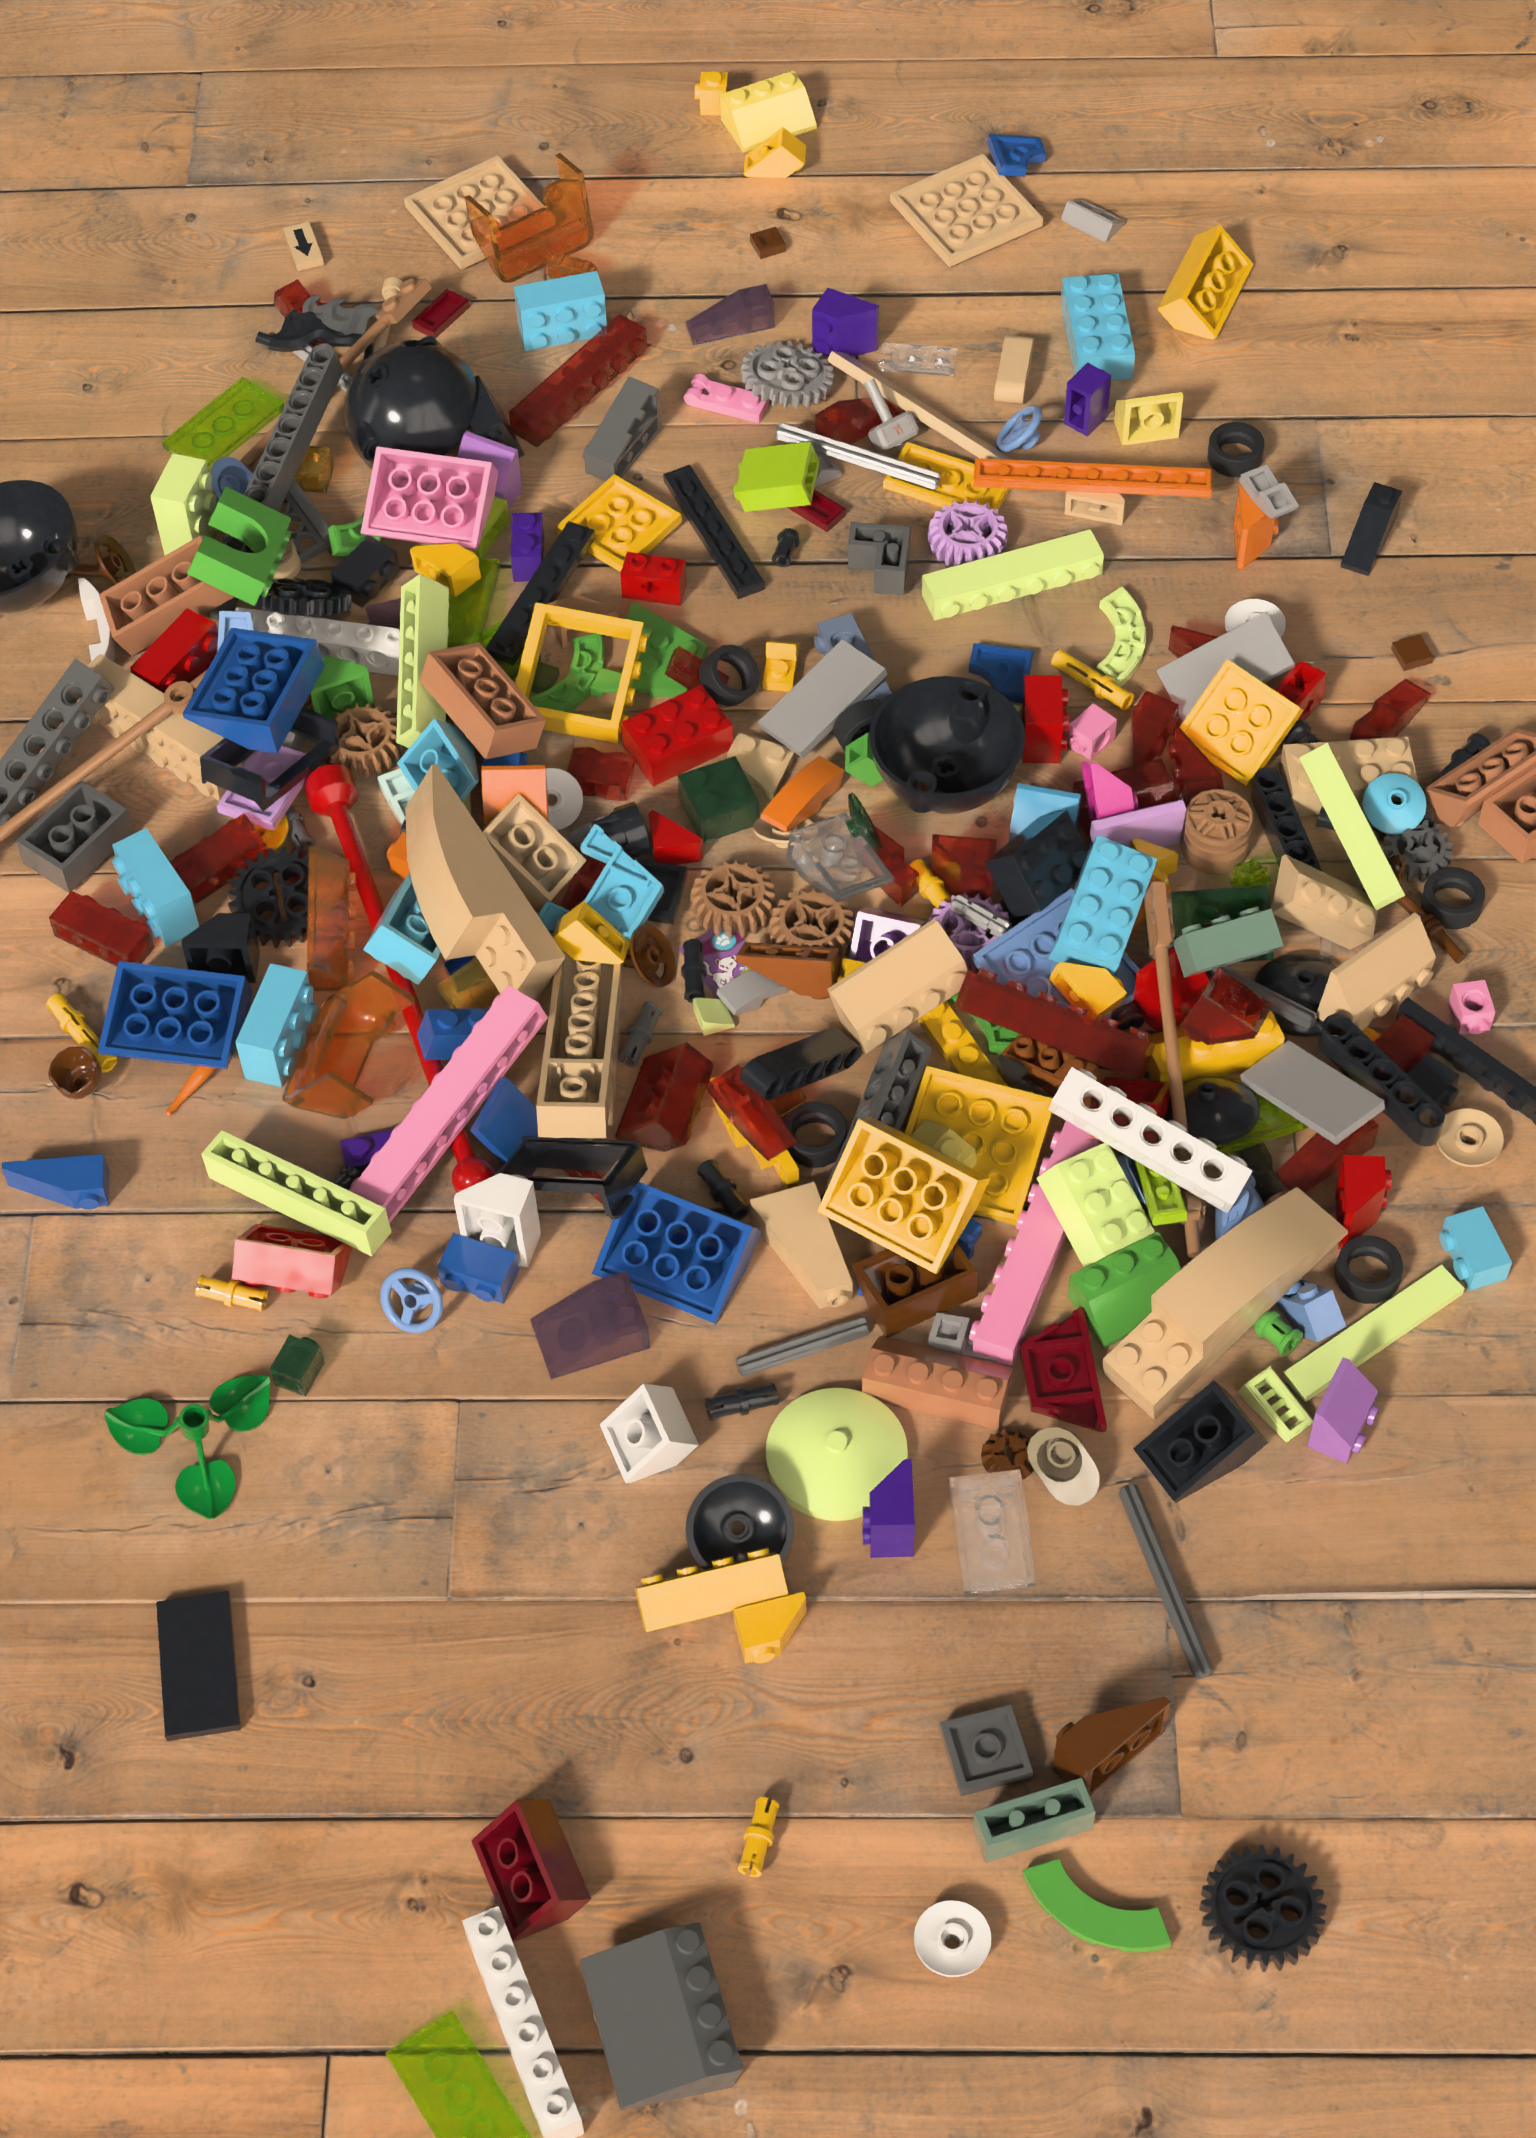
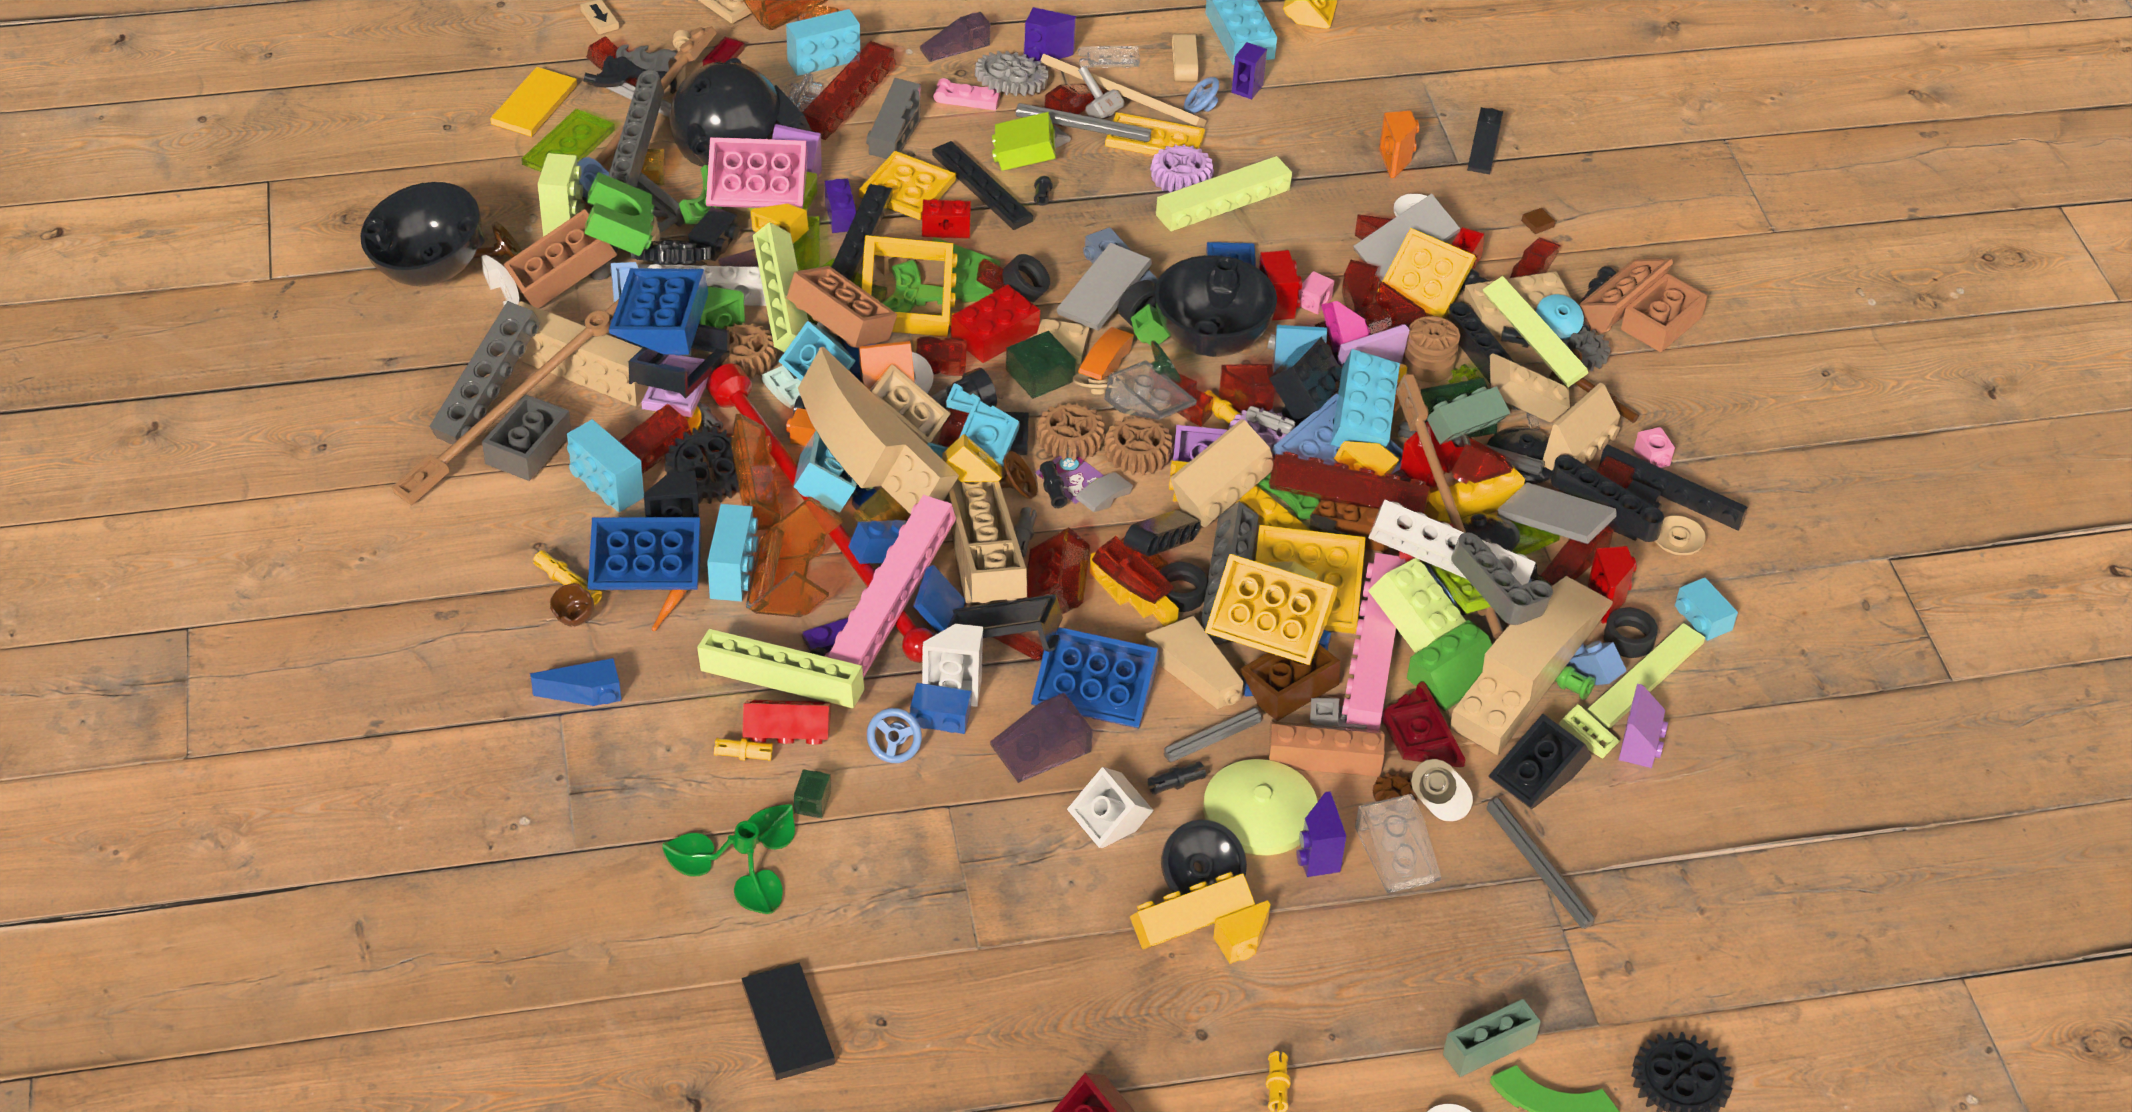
camera: 15 degrees left, 10 degrees down
(101, 930) = (564, 503): clear red brick -> none
(179, 652) = (585, 293): red brick -> none
(196, 361) = (533, 101): none -> yellow tile
(519, 380) = (805, 92): none -> clear hips
(673, 842) = (1014, 396): red slope -> none
(712, 1015) = (1075, 514): yellowish green slope -> none
(723, 1190) = (1116, 629): black pin -> none
(780, 665) = (1061, 270): yellow slope -> none
(798, 968) = (1139, 472): dark orange slope -> none
(822, 511) = (1063, 165): dark red tile -> none
(882, 550) = (1120, 184): dark grey brick -> none
(986, 1750) = (1438, 997): dark grey plate -> none
(1093, 477) = (1268, 121): orange tile -> none
(1096, 506) = (1273, 139): tan slope -> none
(1108, 1741) = (1533, 971): reddish brown slope -> none
(1119, 696) = (1312, 261): yellow pin -> none
(1129, 636) = (1322, 227): yellowish green tile -> none
(1148, 418) = (1297, 79): light yellow slope -> none
(1165, 1159) = (1496, 583): none -> dark grey beam
(1235, 433) = (1366, 107): black tyre -> none
(1267, 493) = (1409, 117): light grey slope -> none
(1459, 879) = (1623, 367): black tyre -> none

